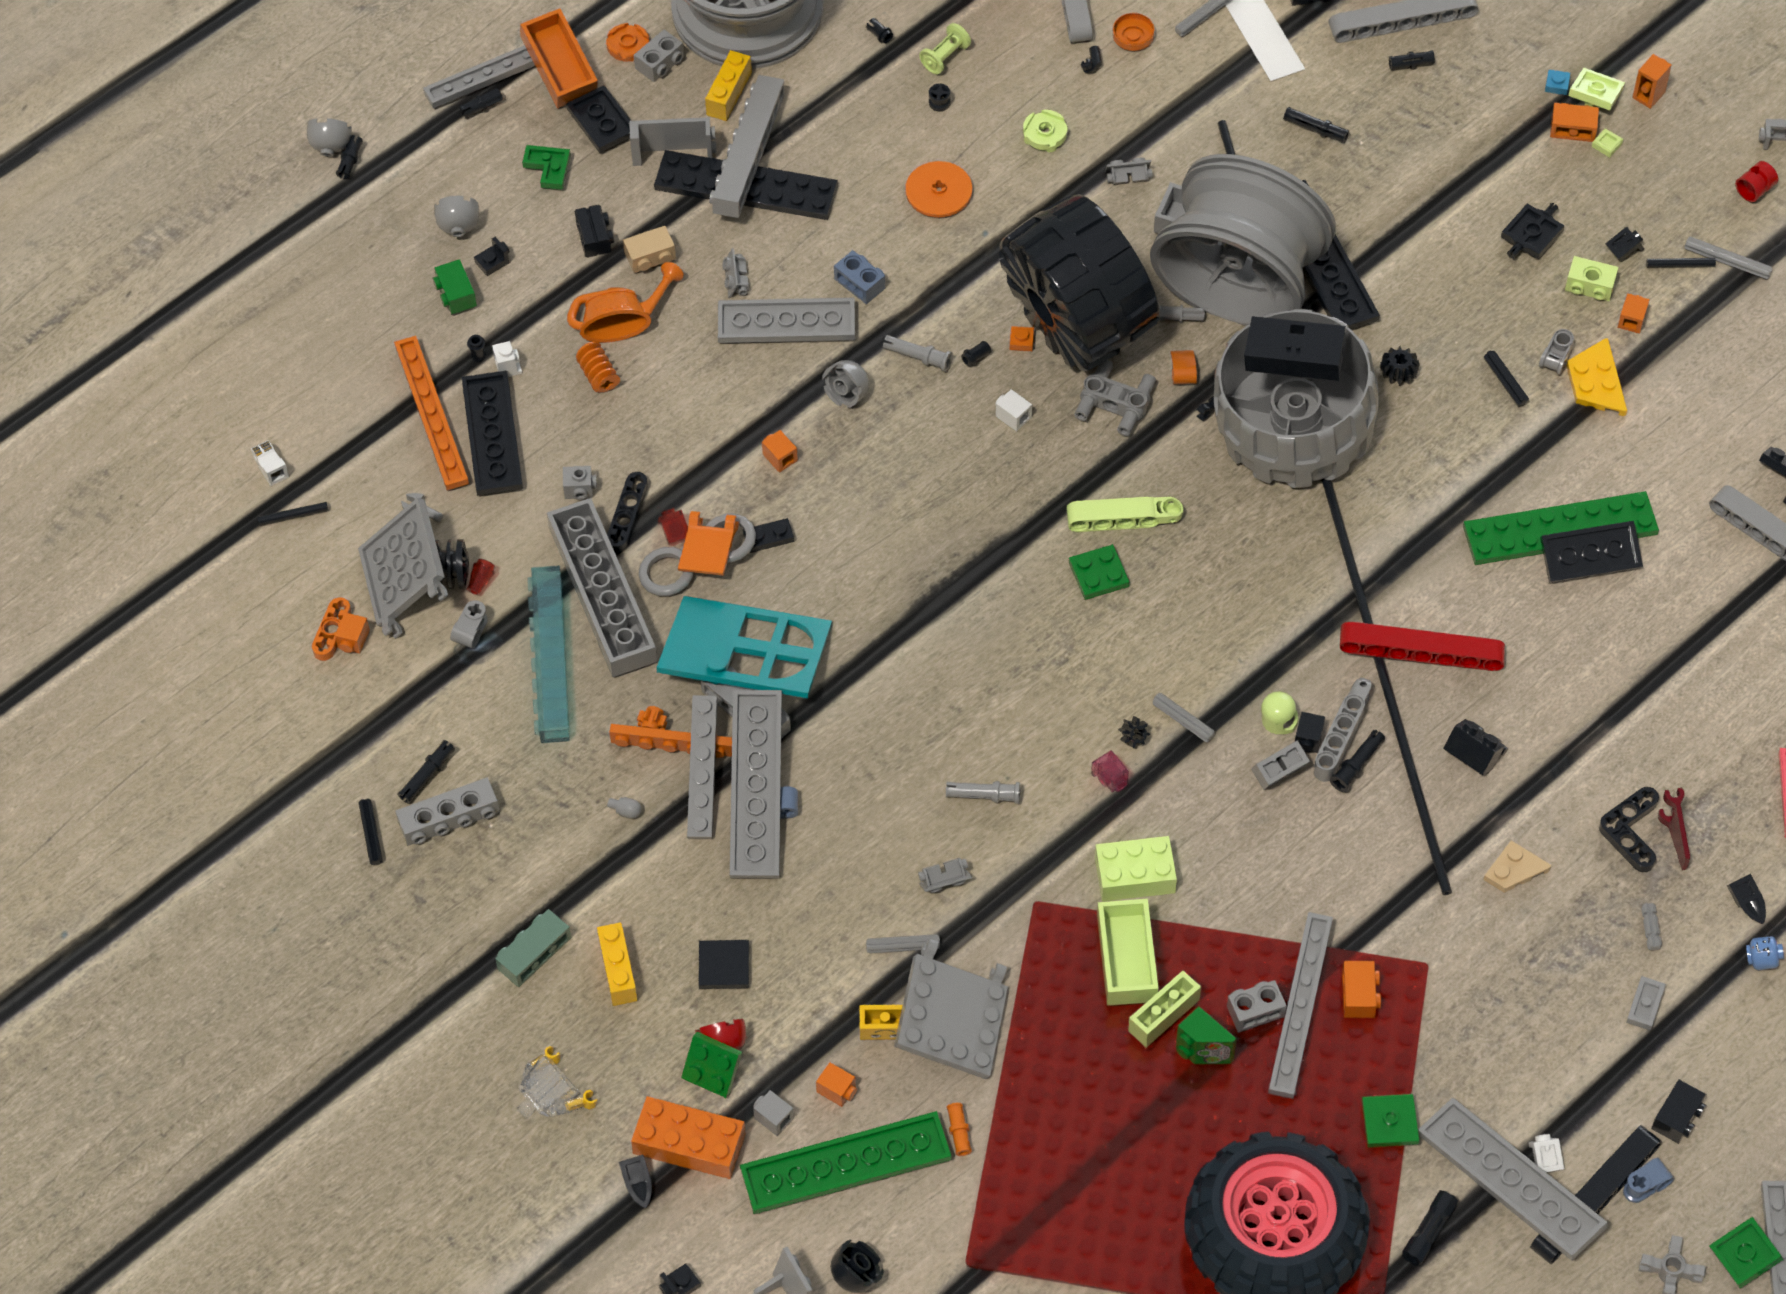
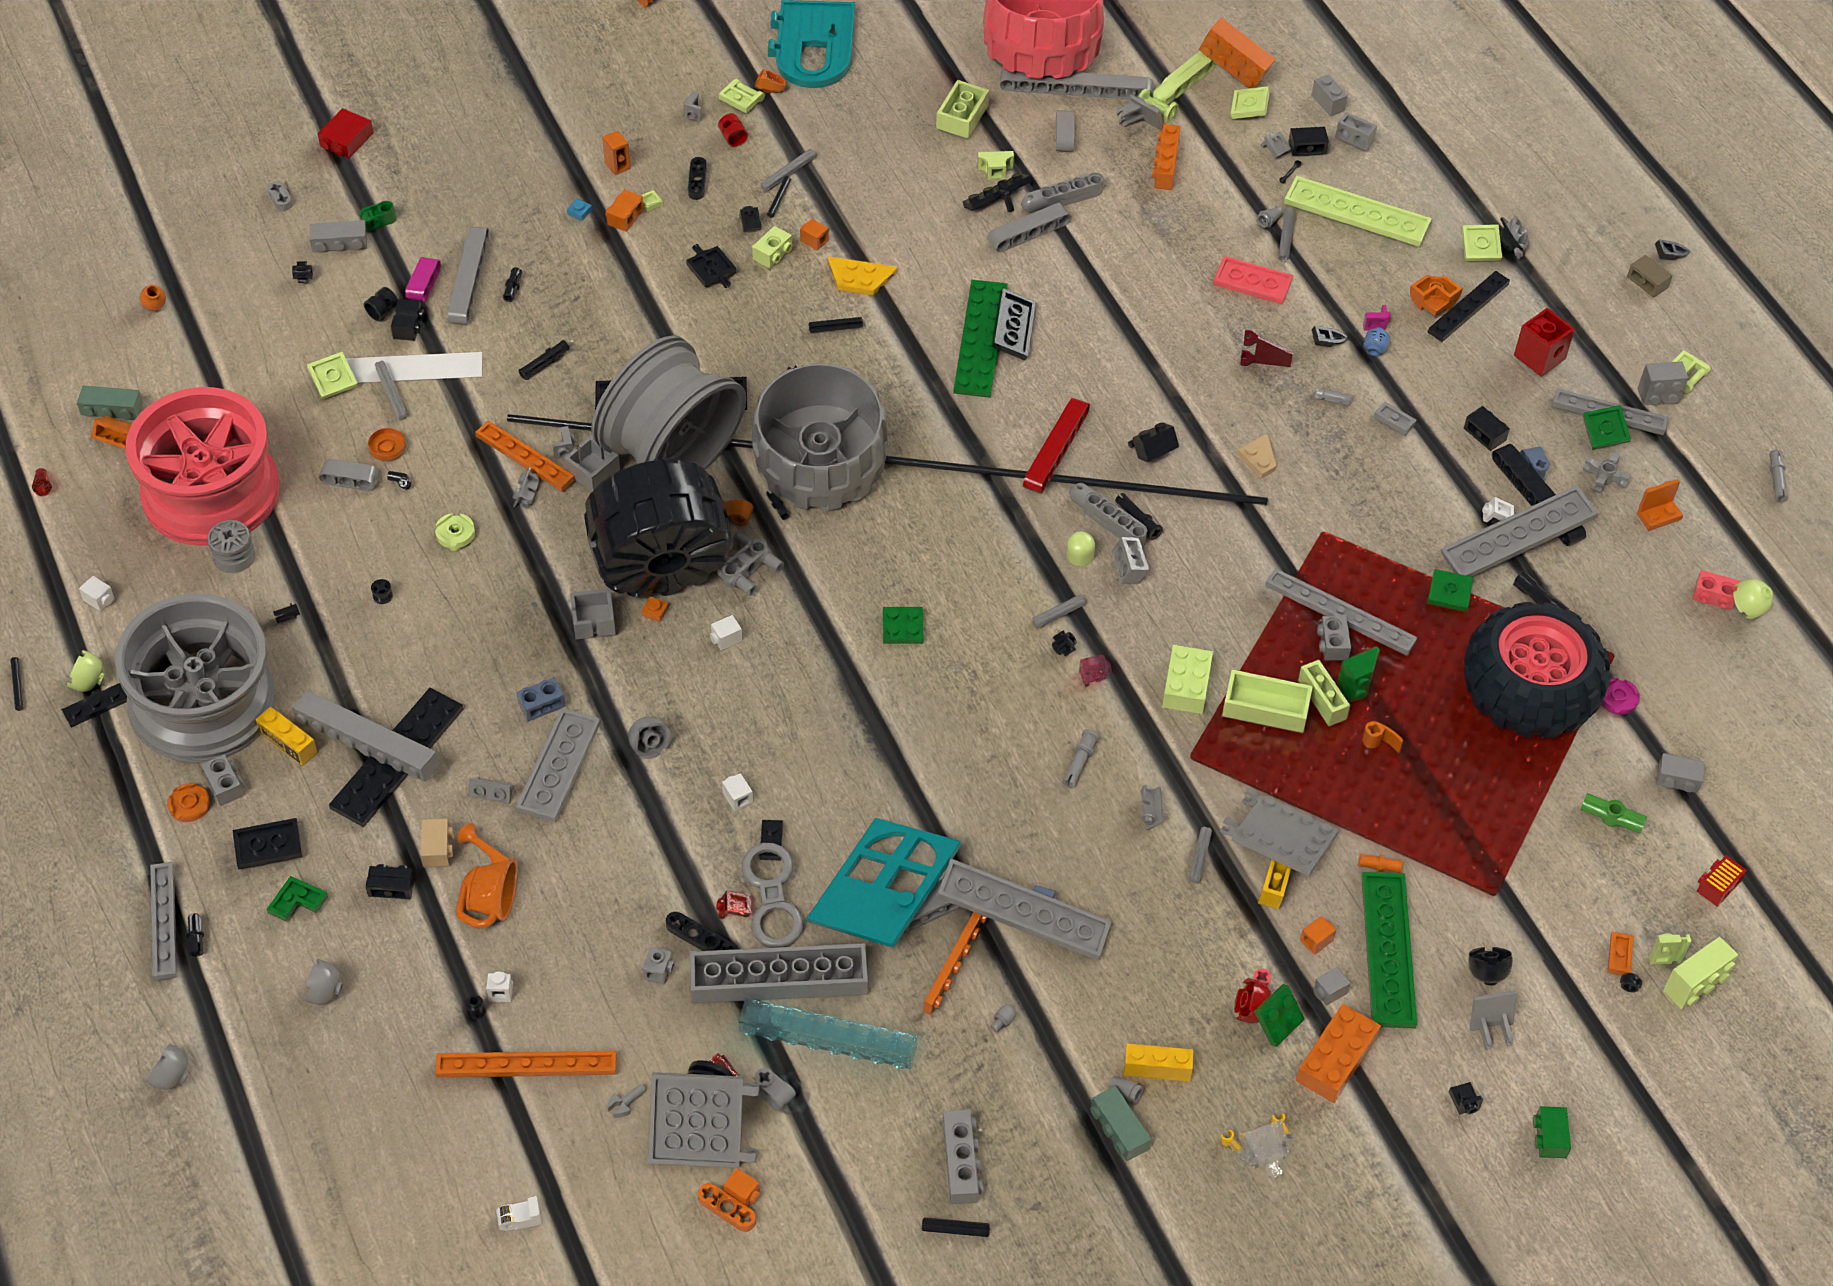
camera: 75 degrees left, 5 degrees down
(292, 513) = (584, 1210): black bar -> none
(349, 157) = (199, 1061): black pin -> none
(427, 770) = (906, 1158): black pin -> none
(455, 287) = (399, 1006): green brick -> none
(492, 433) = (571, 1020): black plate -> none
(493, 257) = (376, 970): black bracket -> none
(558, 57) = (189, 852): orange piece -> none
(576, 946) = (1129, 1089): none -> light grey cone
(597, 367) = (543, 917): orange piece -> none
(637, 1179) = (1363, 1102): black plate -> none
(652, 718) = (927, 972): orange gear -> none
(671, 135) = (336, 764): light grey panel -> none
(702, 767) = (992, 944): light grey plate -> none
(707, 547) = (773, 881): orange flag -> none
(723, 964) = (1178, 986): black tile -> none
(759, 1035) = (1262, 974): none -> coral axle
(779, 451) = (692, 806): orange brick -> none
(812, 484) = (737, 792): none -> white brick
(923, 193) = (483, 631): orange piece -> none
(928, 354) = (642, 675): light grey pin -> none
(934, 58) = (328, 560): yellowish green hose -> none
(970, 356) = (658, 646): black pin -> none
(986, 286) = (592, 613): none -> light grey piece
(1122, 513) = (857, 591): yellowish green piece -> none
(1130, 1085) = (1376, 732): none -> orange panel
(1173, 152) = (525, 456): none -> orange plate
(1295, 348) = (804, 402): black brick -> none
(1310, 731) = (1105, 535): black brick -> none
(1359, 989) = (1339, 572): orange brick -> none
(1557, 354) = (828, 286): light grey piece -> none
(1596, 89) = (603, 187): yellowish green hinge -> none
(1623, 830) = (1249, 389): black beam -> none
(1672, 167) = (694, 172): none -> black beam

